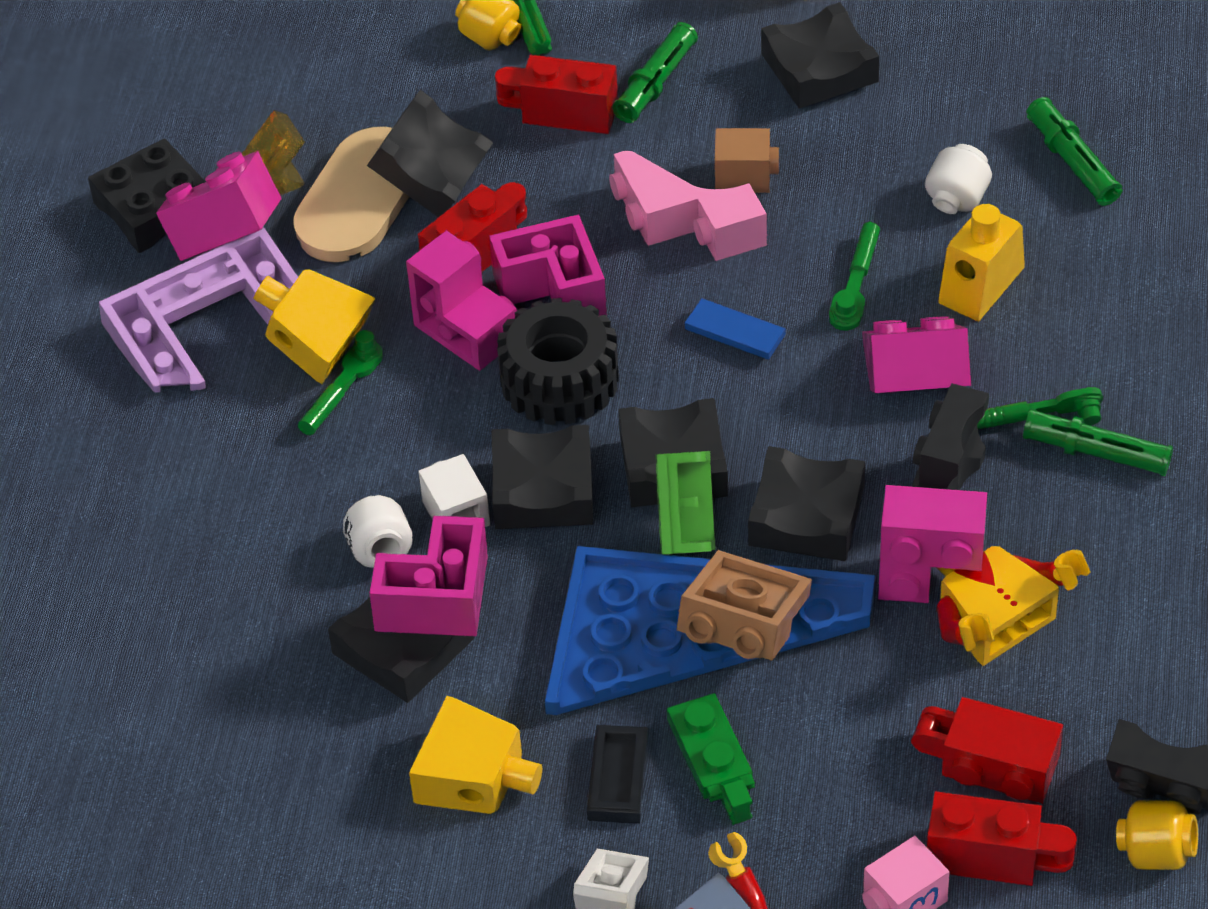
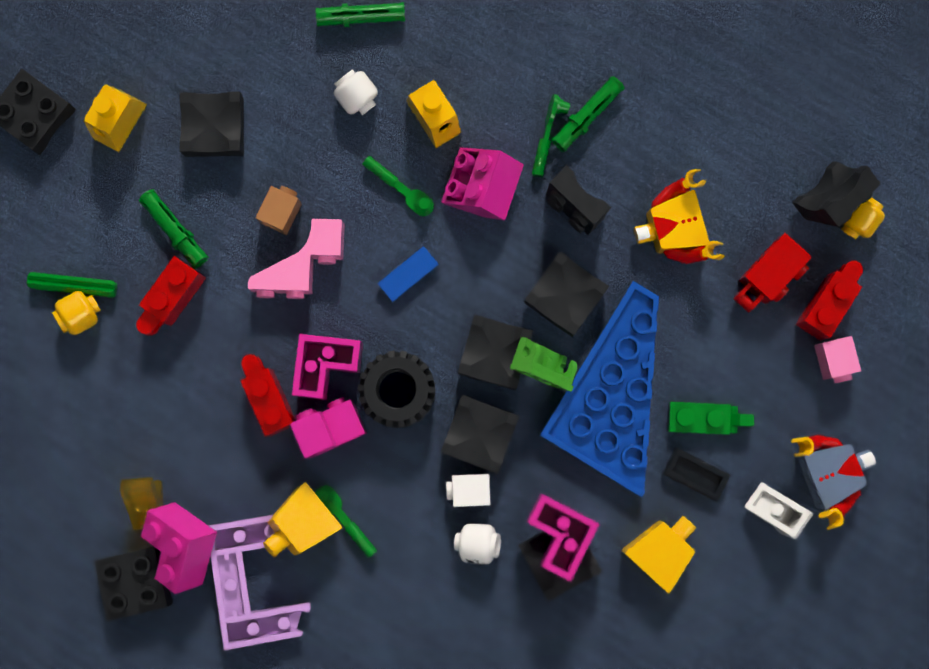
camera: 70 degrees left, 35 degrees up
(349, 202) = (189, 451): tan tile -> none
(429, 155) = (191, 400): black brick -> none
(742, 605) = (636, 364): medium nougat plate -> none
(927, 531) = (637, 242): dark pink brick -> none

